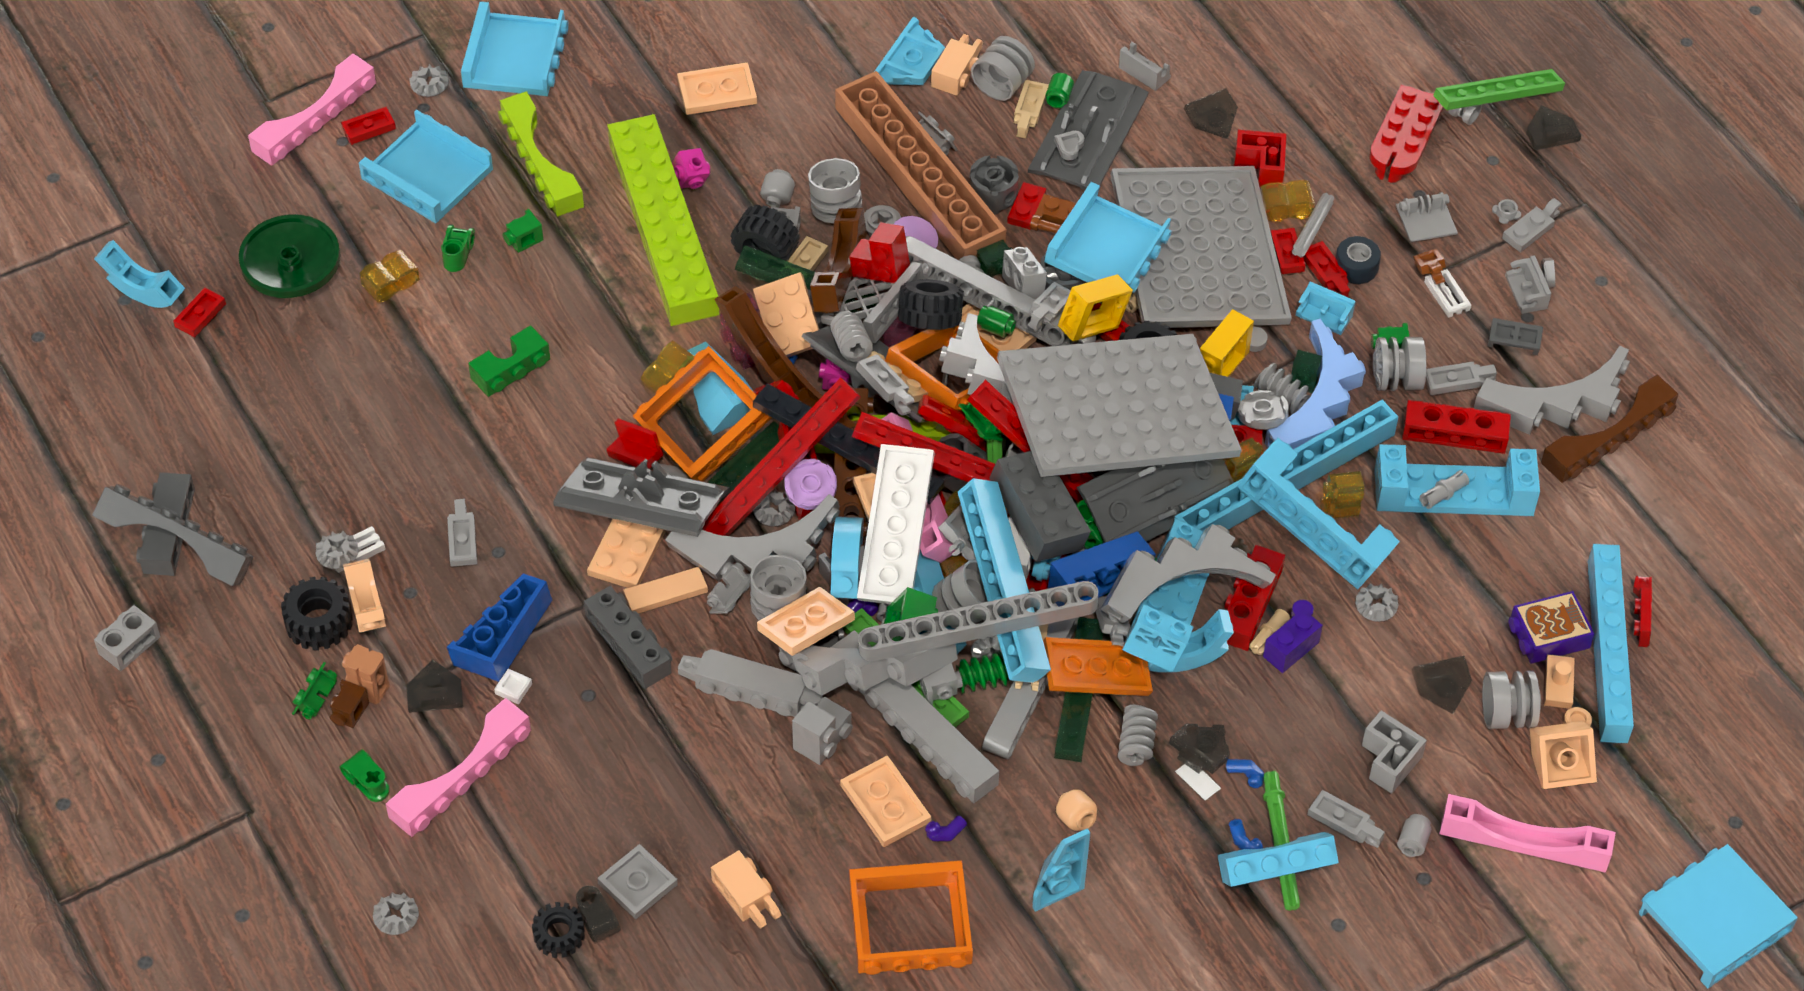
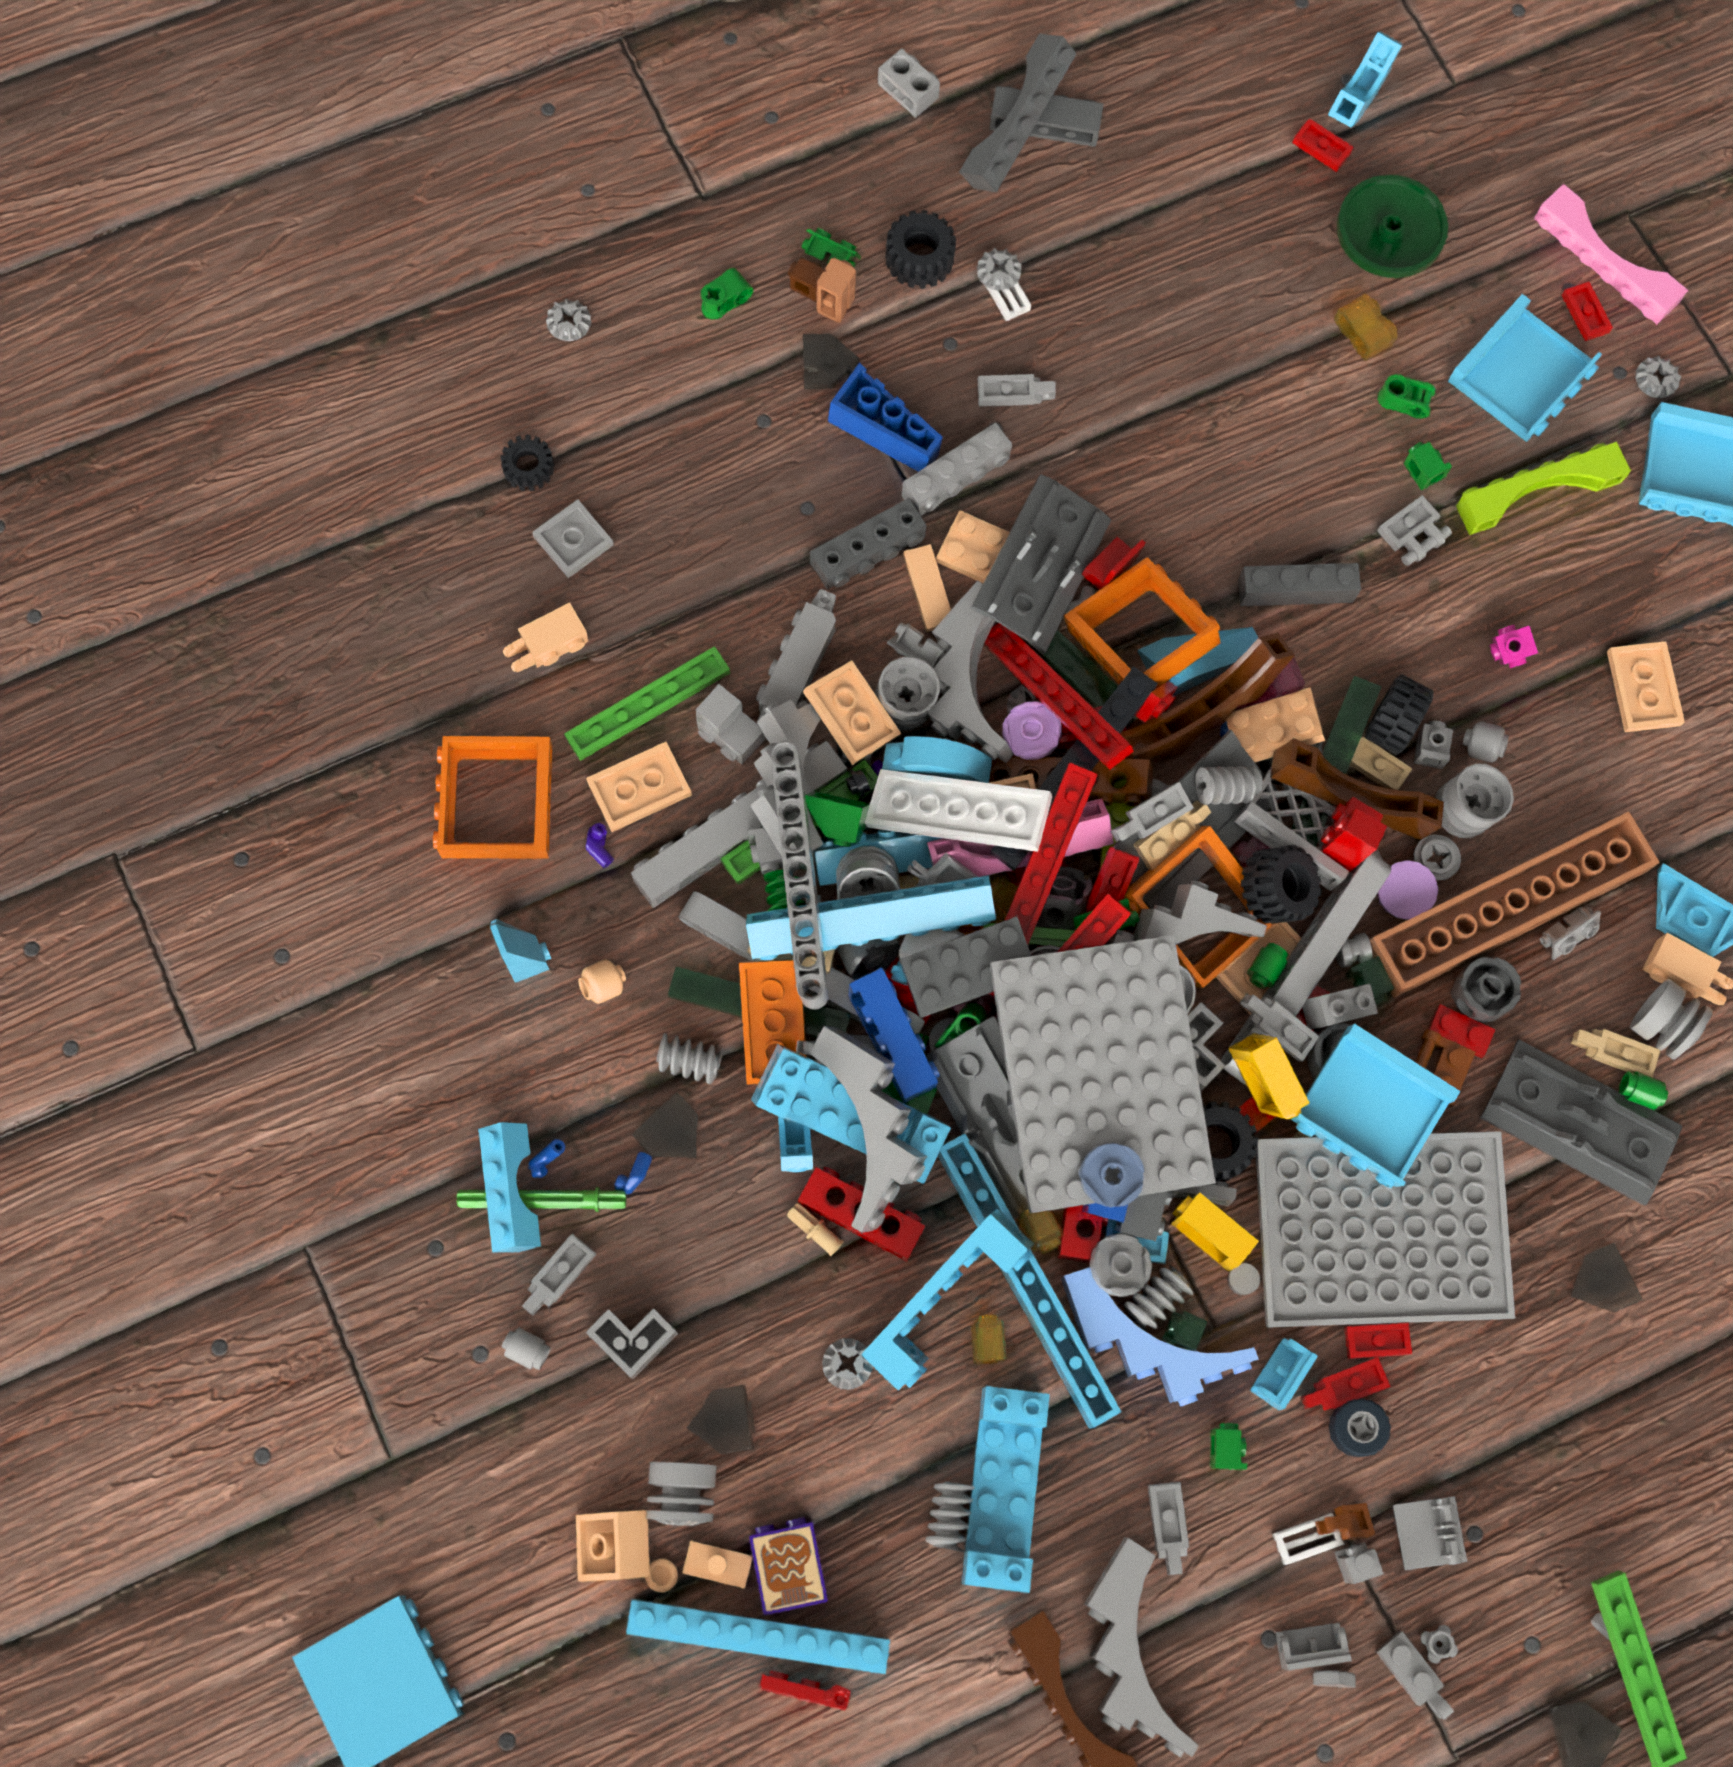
camera: 90 degrees right, 20 degrees up
(364, 595) = (936, 296): light nougat arch -> none
(420, 803) = (760, 415): bright pink arch -> none
(494, 373) = (1251, 463): green arch -> none
(513, 686) = (822, 435): white tile -> none
(543, 562) = (957, 469): none -> light grey brick
(581, 244) = (1408, 524): none -> light grey plate
(597, 915) = (534, 498): clear smoke piece -> none
(644, 314) = (1299, 584): none -> dark grey brick
(663, 220) = (1441, 611): lime brick -> none
(665, 366) = (1222, 603): clear yellow brick -> none
(802, 802) = (647, 703): none -> bright green plate
(868, 618) = (857, 783): none -> black plate
(1069, 144) = (1548, 1088): light grey tile -> none
(1143, 68) = (1685, 1203): light grey hinge -> none
(1199, 782) = (630, 1122): white sticker -> none
(1202, 401) = (1130, 1176): none -> sand blue plate
(1263, 151) = (1532, 1336): red brick -> none
(1288, 200) = (1458, 1353): clear yellow brick -> none
(1294, 637) = (799, 1254): dark purple hinge -> none
(1313, 225) = (1416, 1379): light grey axle -> none
(1403, 363) = (1182, 1447): light grey wheel -> none
(1404, 132) = (1573, 1528): plate -> none
(1444, 489) = (988, 1469): light grey pin -> none
(1456, 426) = (1072, 1554): red brick -> none
(1461, 257) = (1358, 1563): none -> light grey brick
(1484, 517) = (949, 1515): none -> light grey piece
(1515, 335) = (1224, 1610): dark grey hinge -> none
(1576, 846) = (507, 1479): bright pink arch -> none

